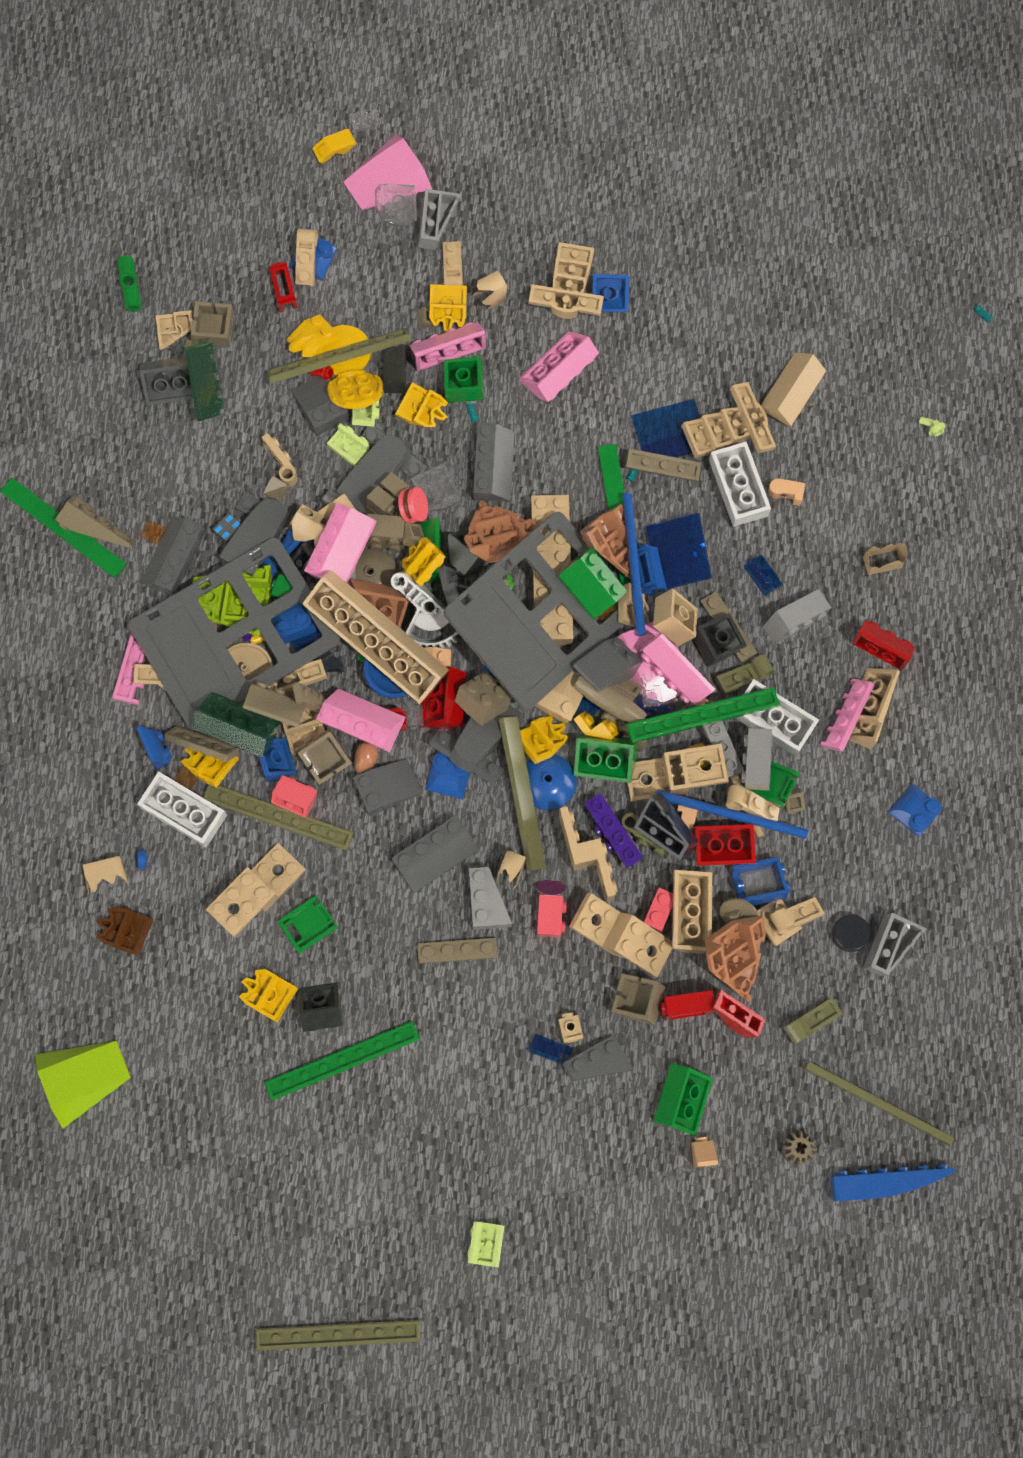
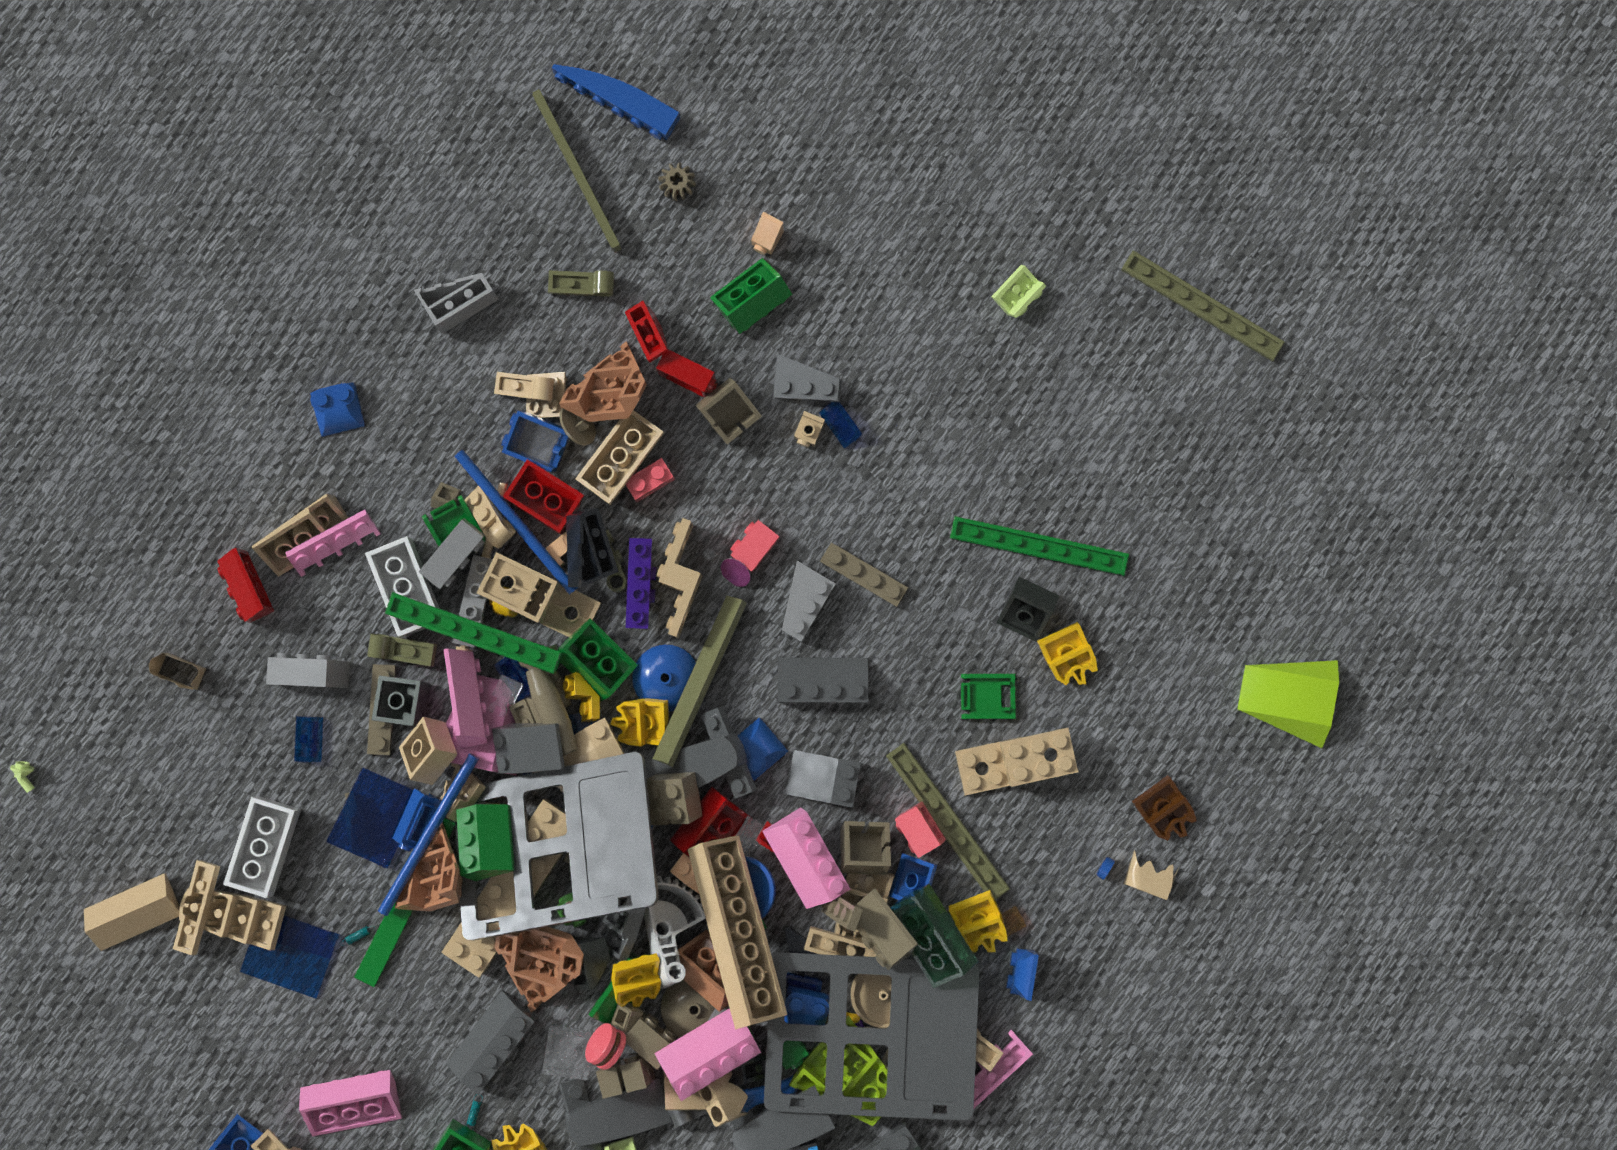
camera: 145 degrees left, 10 degrees up
(182, 809) = (1036, 890): white brick -> none
(201, 743) = (988, 961): dark tan plate -> none
(365, 757) = (827, 820): nougat animal -> none
(512, 863) = (758, 613): tan piece -> none
(622, 934) = (701, 480): tan bracket -> none
(663, 465) = (323, 920): dark tan plate -> none
(787, 489) = (218, 808): light nougat leg -> none
(851, 933) = (485, 337): black head -> none

